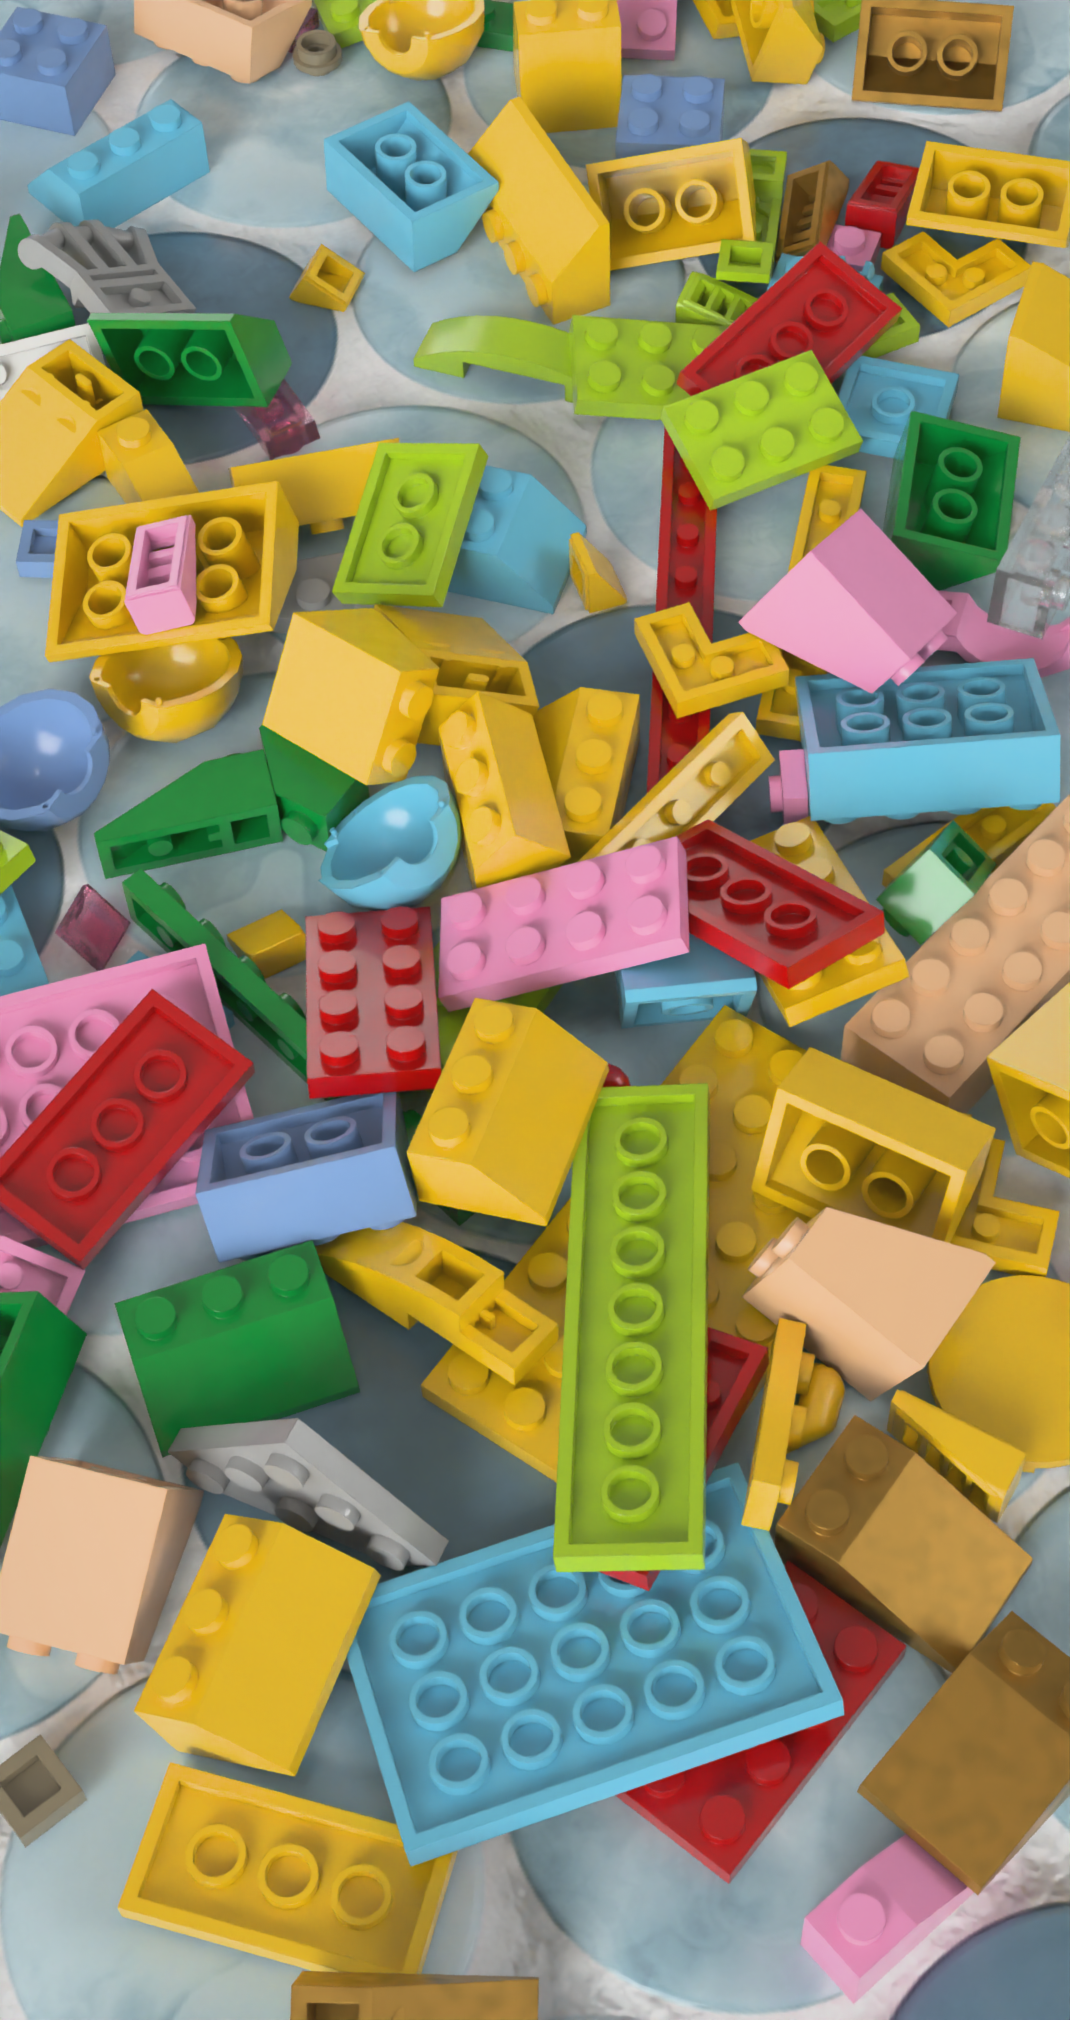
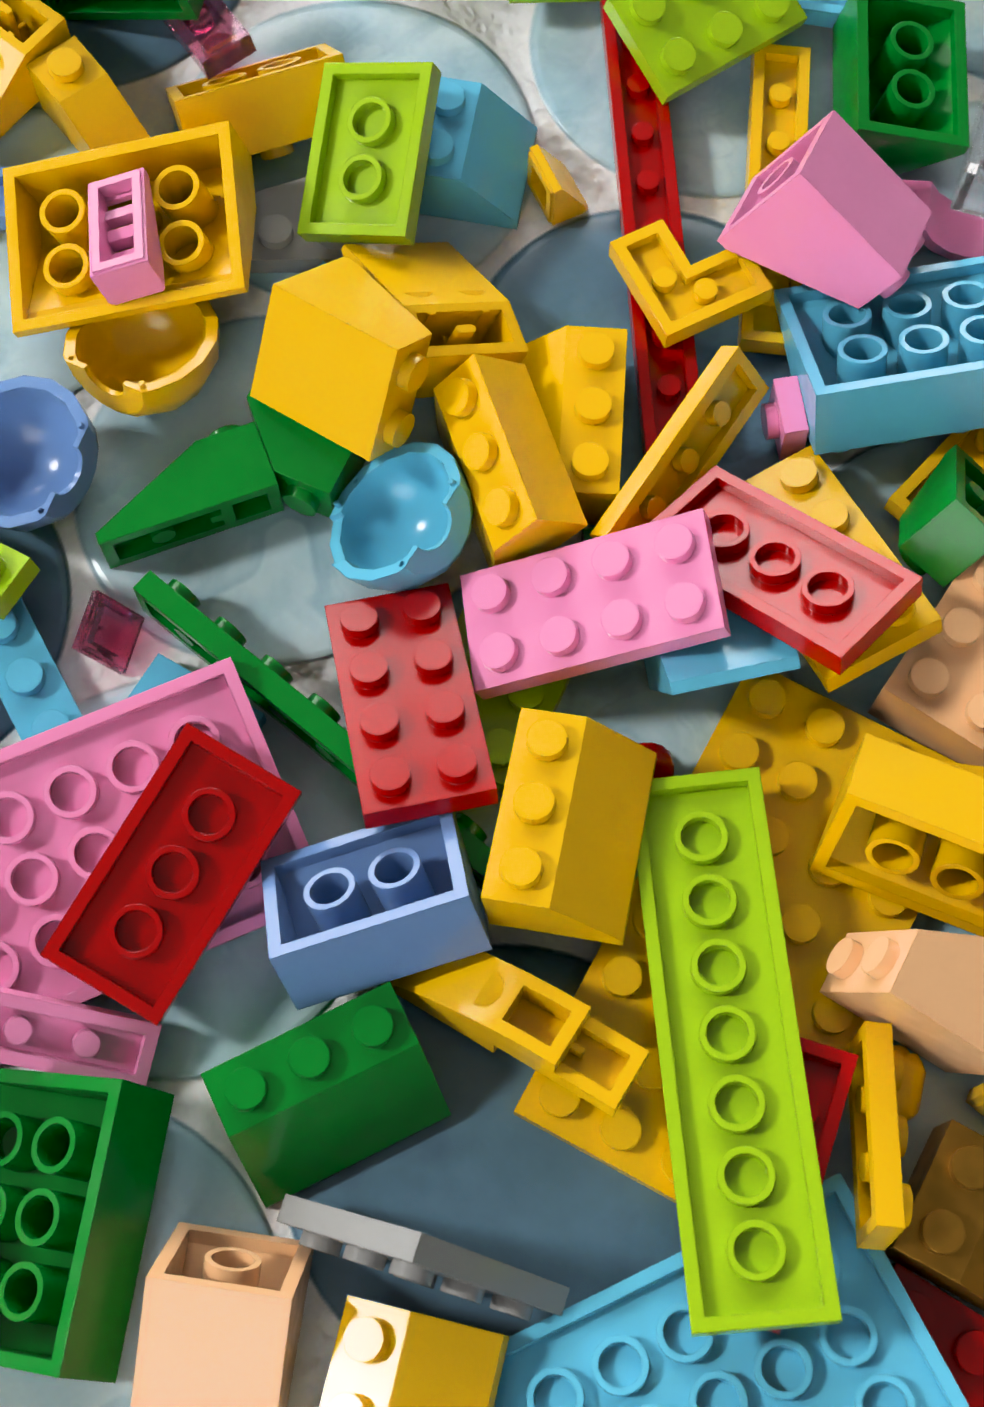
camera: 10 degrees left, 15 degrees up
(271, 943) = (289, 630): yellow slope -> none

